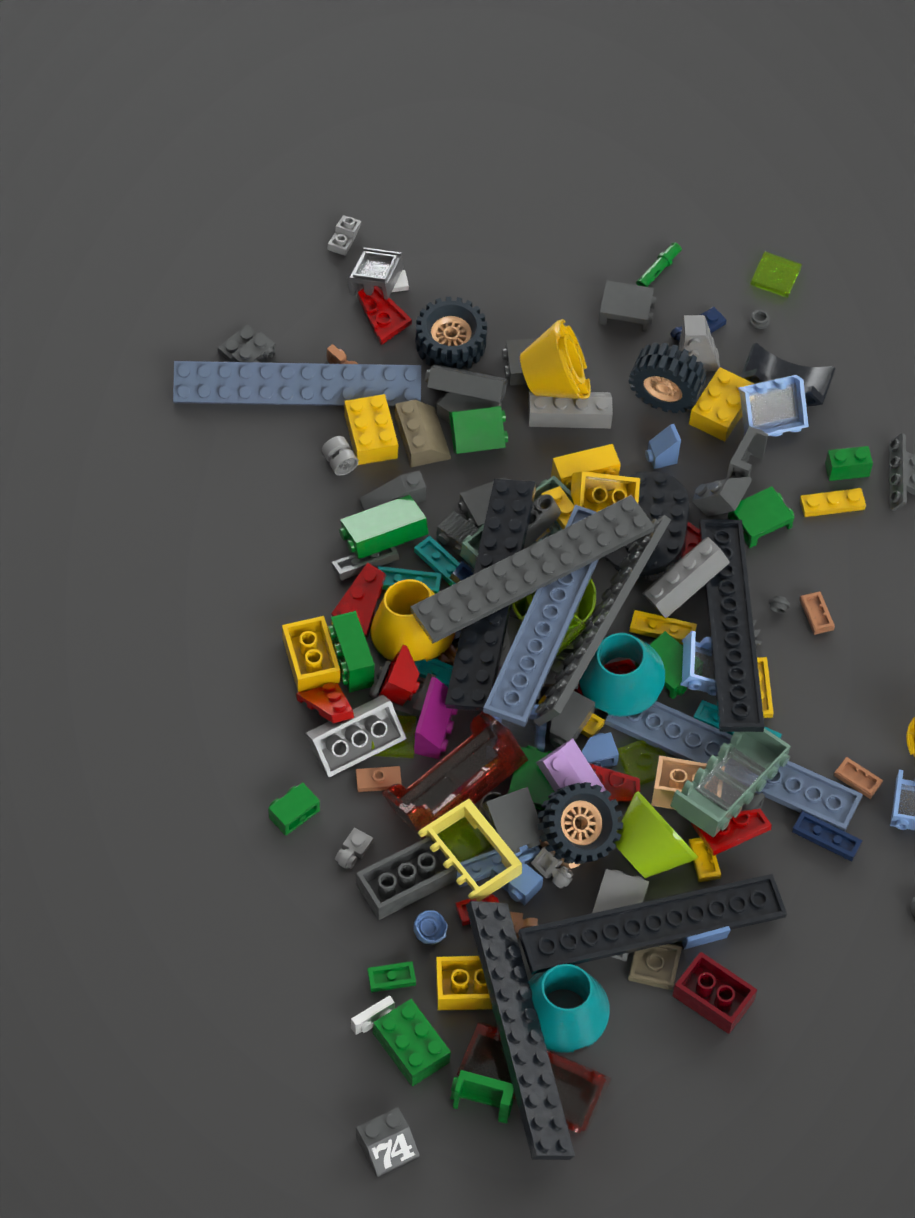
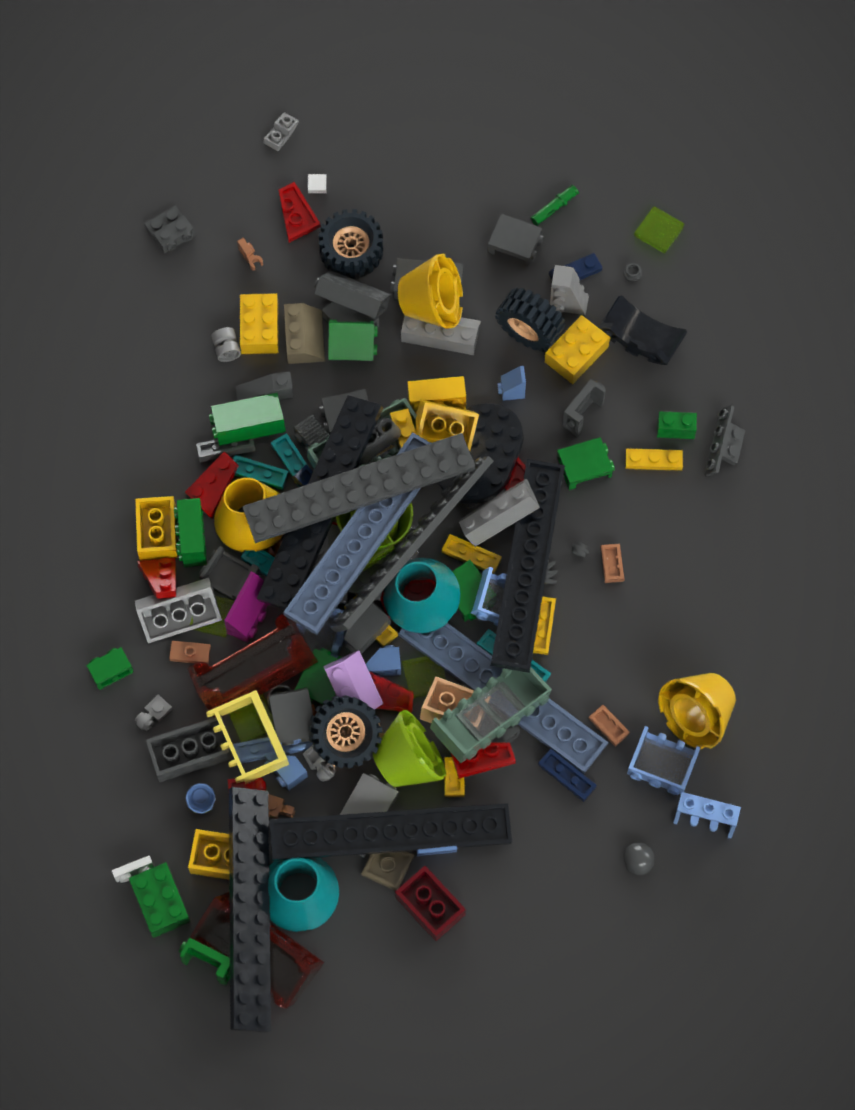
camera: 15 degrees right, 10 degrees up
(292, 383) = (203, 269): sand blue plate -> none
(376, 269) = (299, 172): flat silver window -> none
(387, 1142) = (118, 985): dark grey slope -> none
(391, 976) = (157, 836): green plate -> none
(401, 678) = (226, 566): red slope -> none
(720, 495) = (552, 439): dark grey slope -> none
(775, 406) = (620, 361): window -> none

